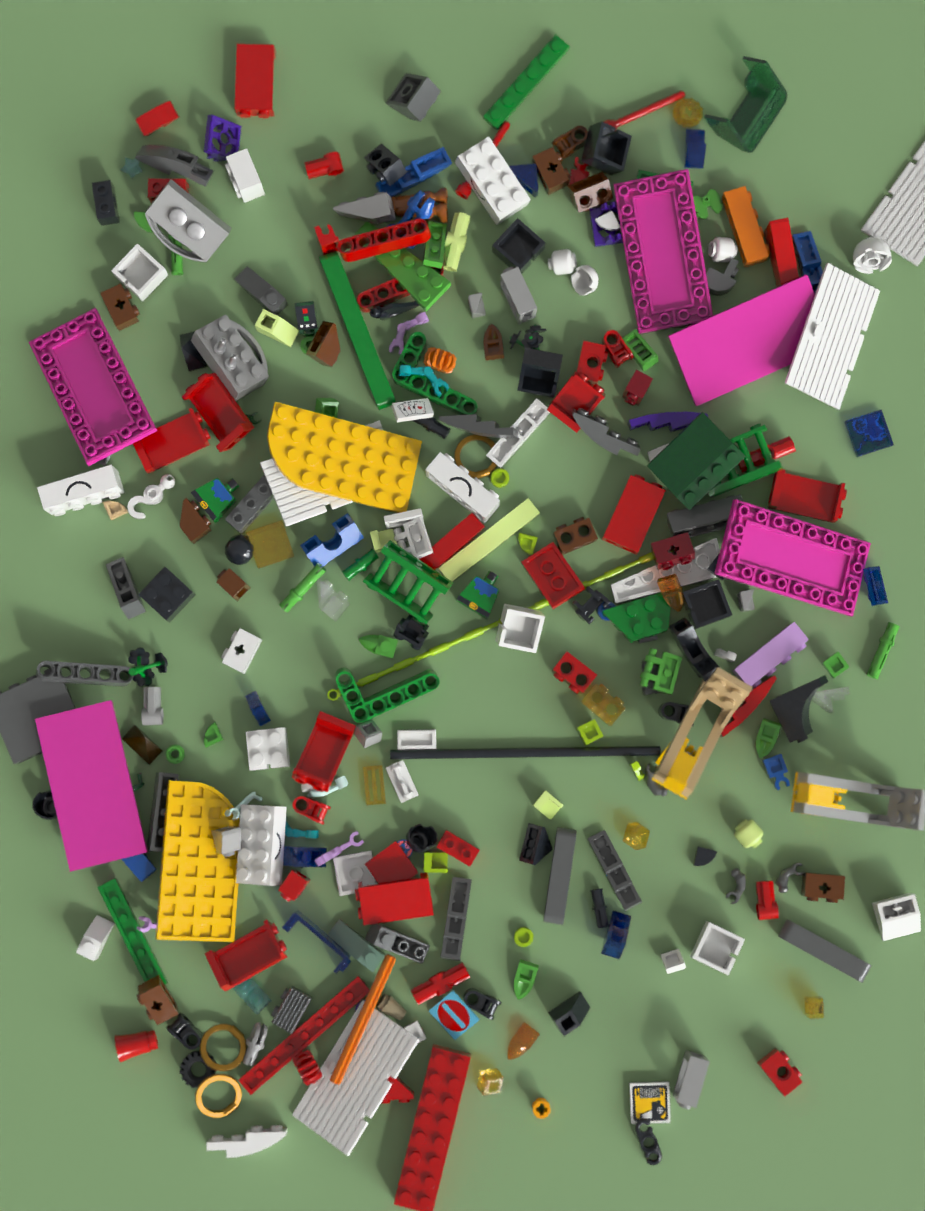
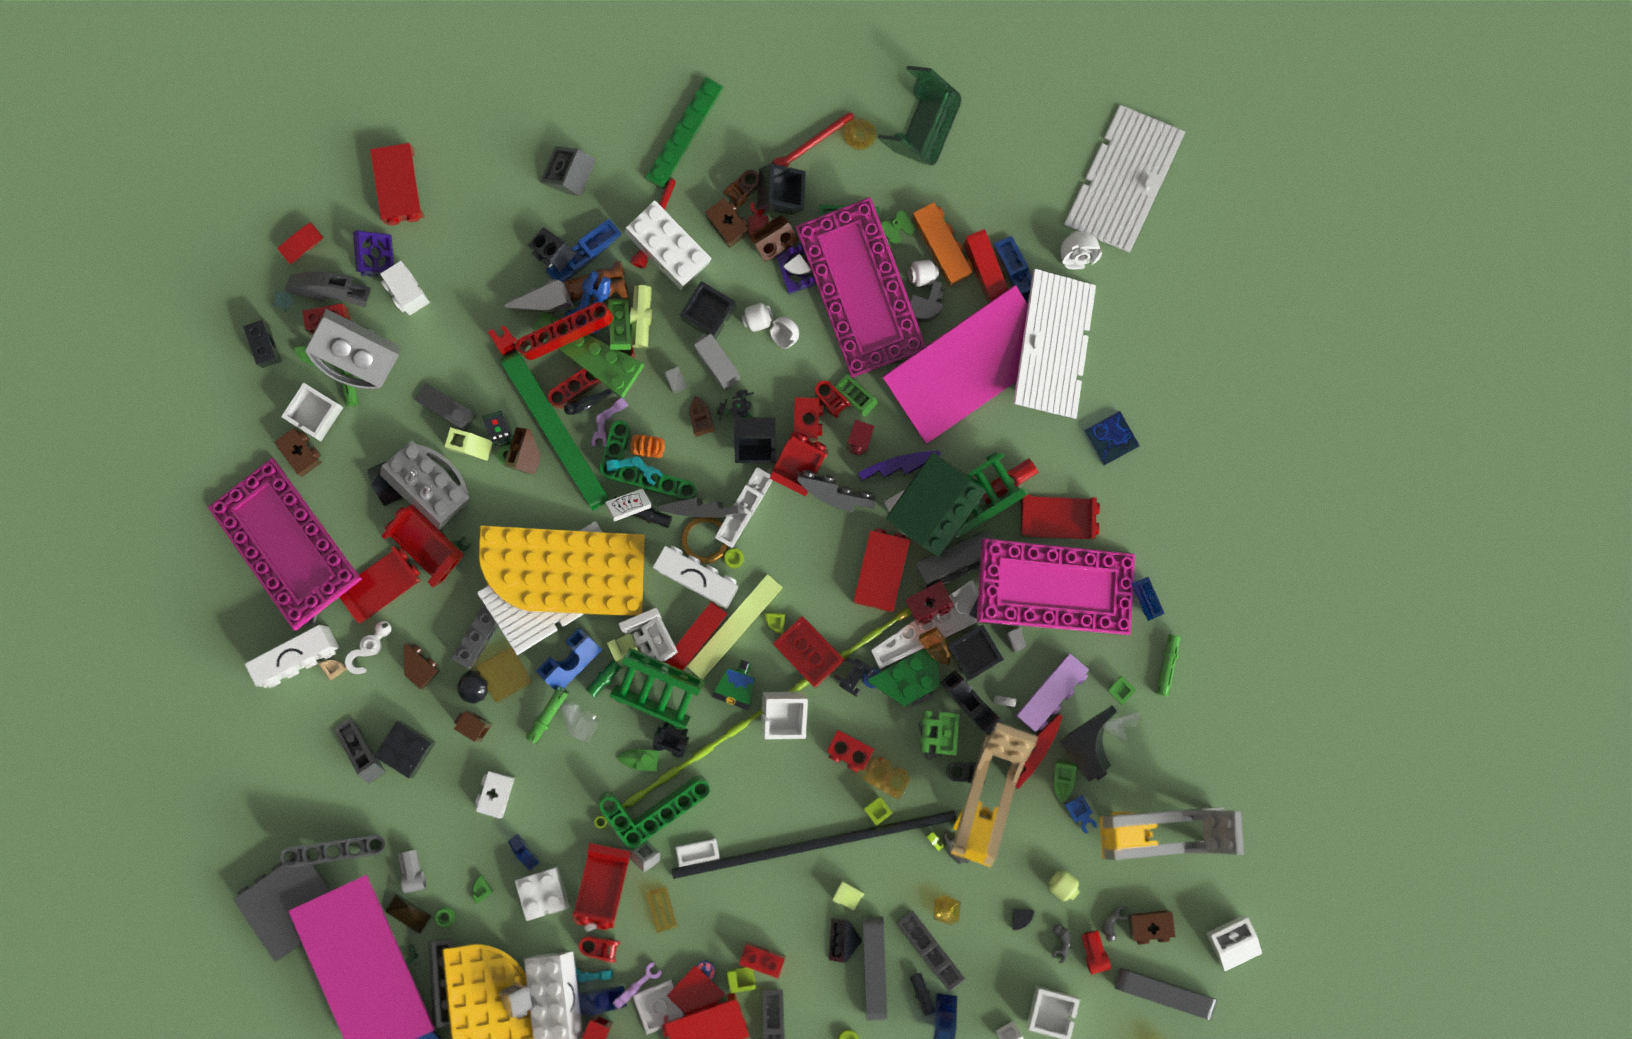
camera: 15 degrees left, 0 degrees up
(44, 805) = (315, 1000): black hair -> none
(143, 674) = (396, 839): black plant -> none
(216, 497) = (437, 636): torso -> none
(236, 811) = (520, 966): light aqua piece -> none
(327, 406) = (537, 518): bright green slope -> none
(328, 165) = (491, 259): red piece -> none
(340, 783) = (625, 913): light aqua piece -> none
(402, 781) = (690, 900): white hinge -> none
(421, 838) = (721, 957): black hair -> none
(527, 177) = (703, 234): clear blue slope -> none
(577, 540) = (827, 609): reddish brown brick -> none
(695, 148) = (874, 171): clear blue slope -> none

